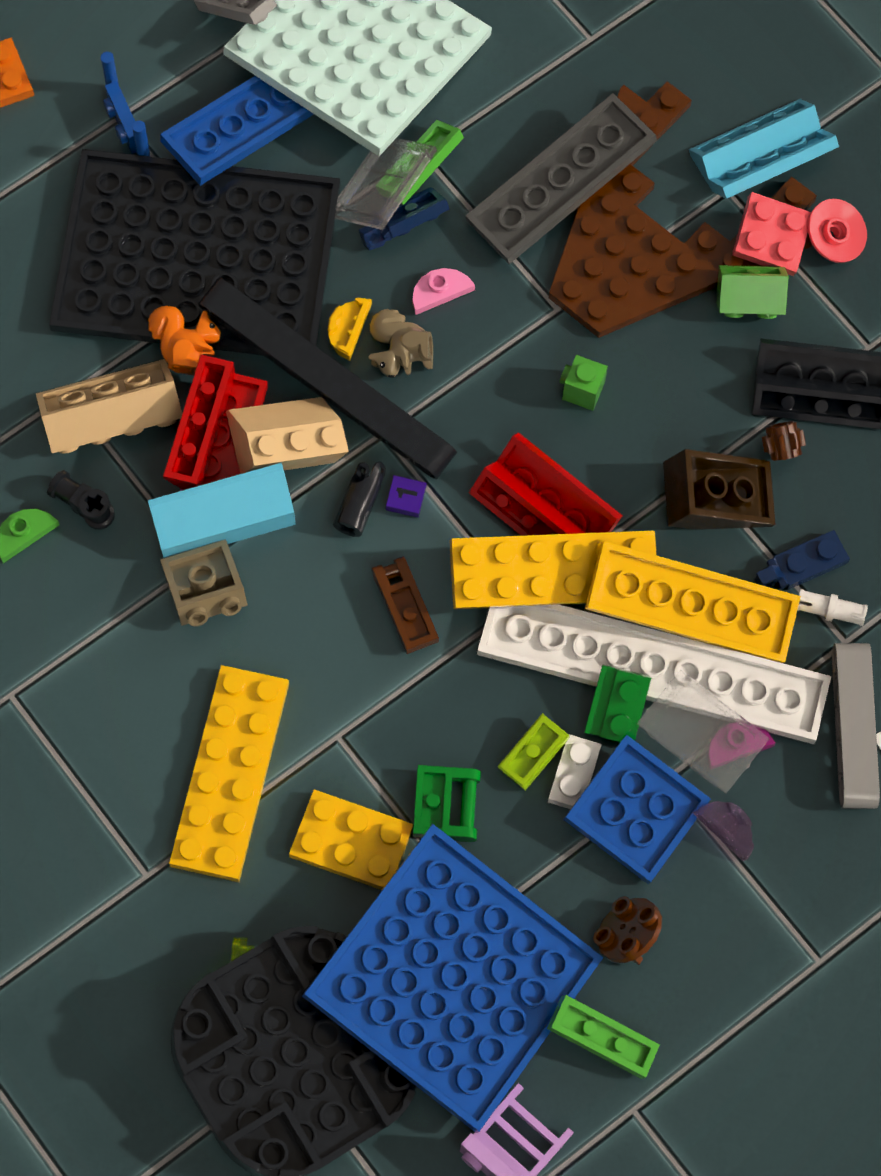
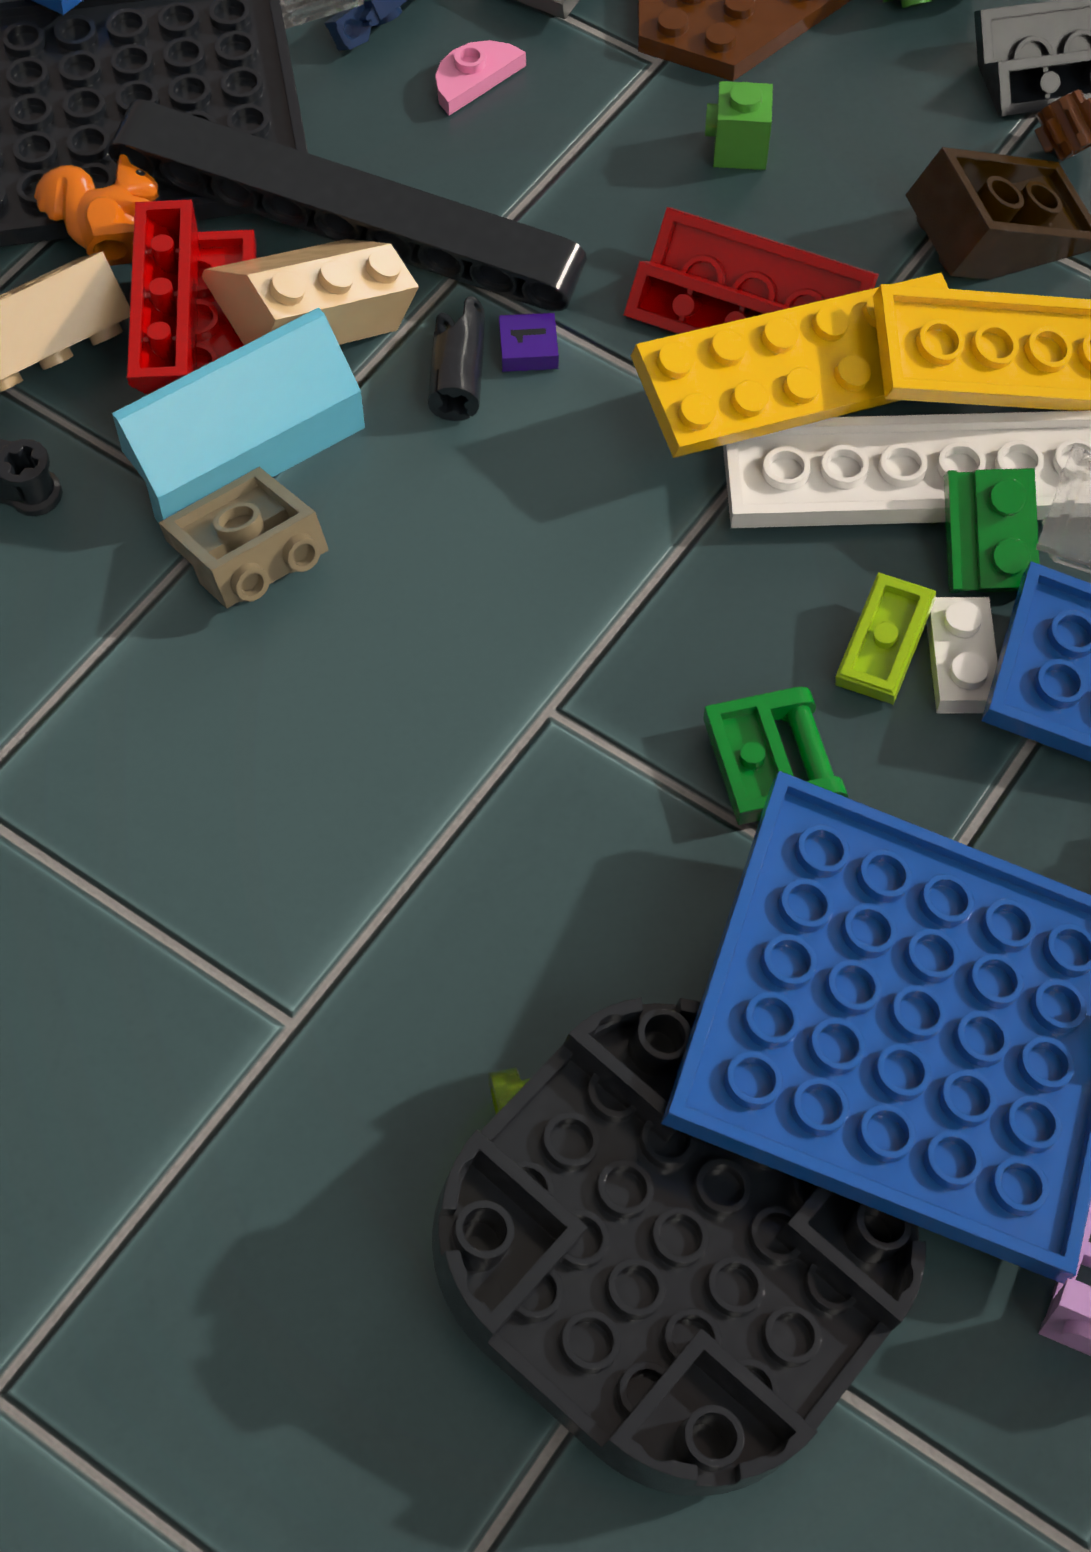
camera: 15 degrees left, 10 degrees down
(229, 773) = (385, 821): yellow plate -> none
(346, 326) = (352, 137): yellow plate -> none
(350, 840) = (635, 861): yellow plate -> none
(405, 605) = (589, 486): reddish brown plate -> none
(406, 341) = (443, 145): dark tan animal -> none

